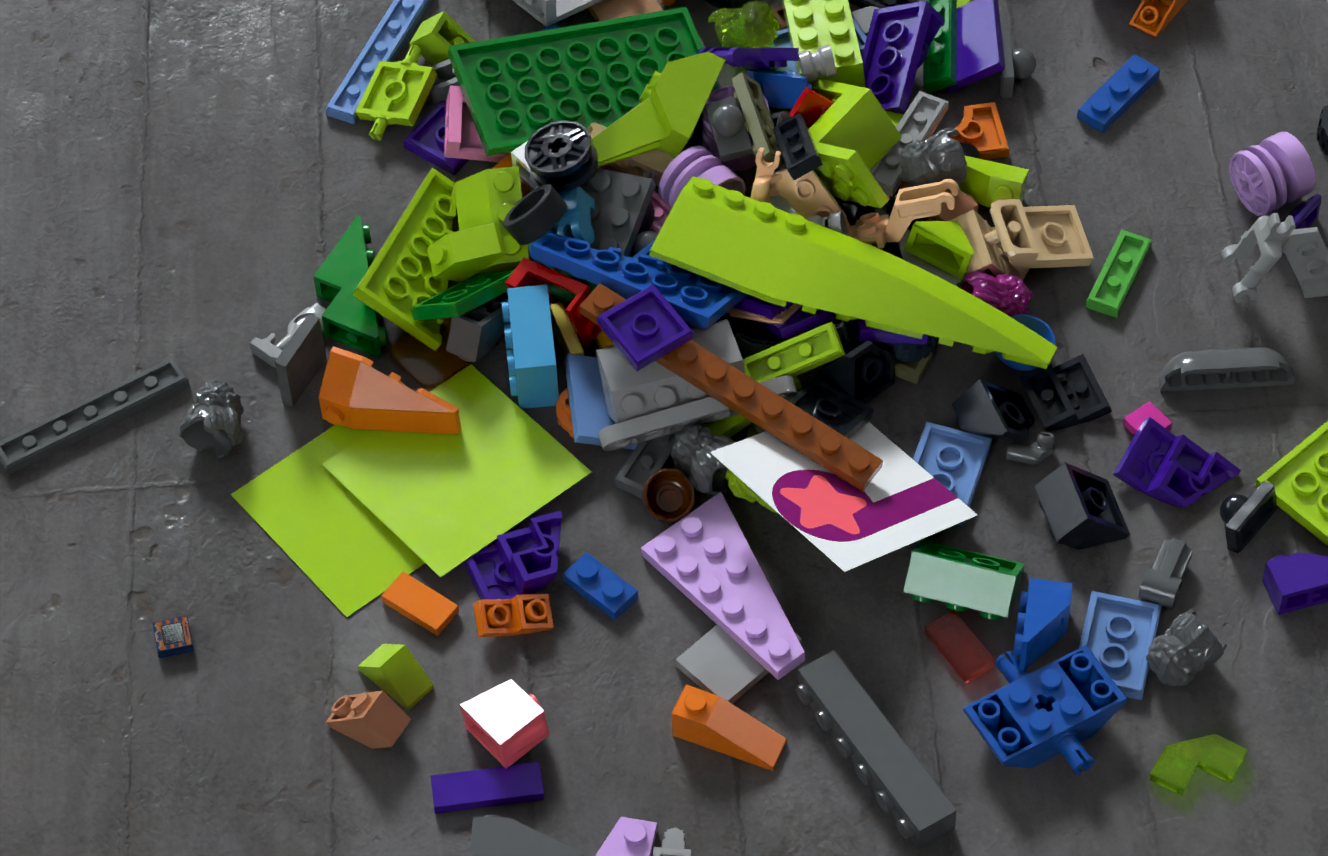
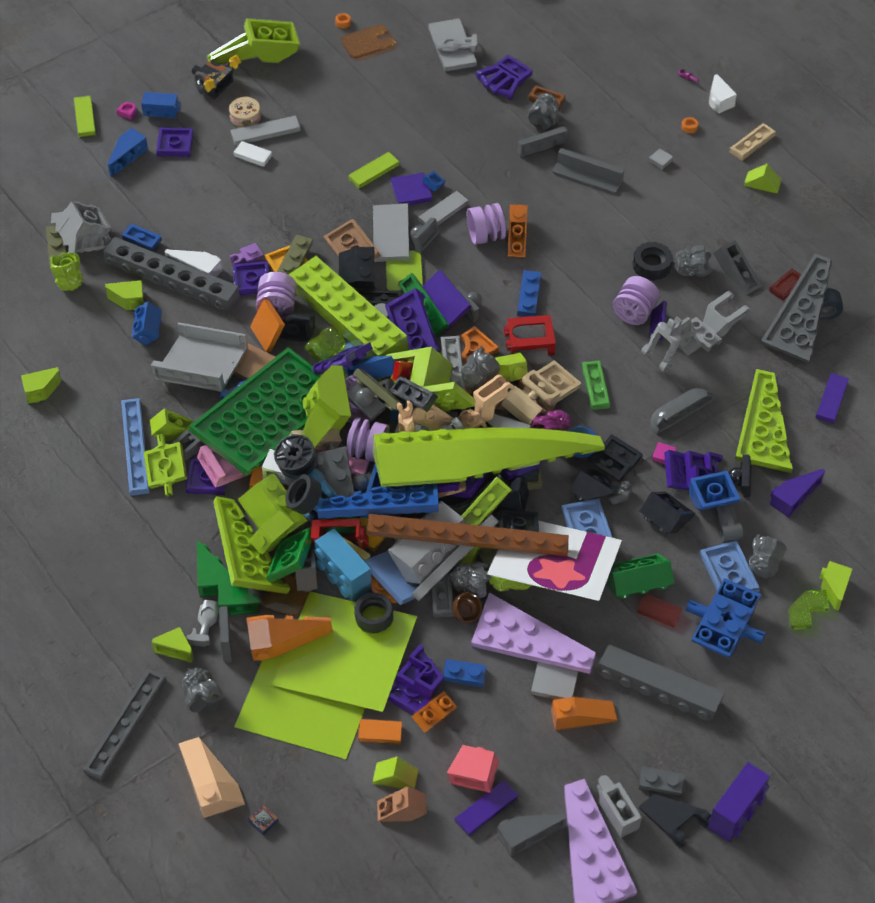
camera: 35 degrees left, 0 degrees up
(141, 546) = (211, 782): none -> light nougat wedge
(228, 341) = (173, 645): none -> lime slope
(529, 414) = (373, 599): none -> black tyre
(645, 327) = (410, 525): dark purple tile -> none
(817, 63) = (388, 345): light grey wheel -> none
(941, 245) = (513, 411): lime slope -> none
(1041, 619) = (690, 572): blue slope -> none
(1089, 174) = (514, 343): none -> red panel
(1172, 509) = (712, 490): none -> blue slope
(1272, 746) = (835, 581): none -> lime slope

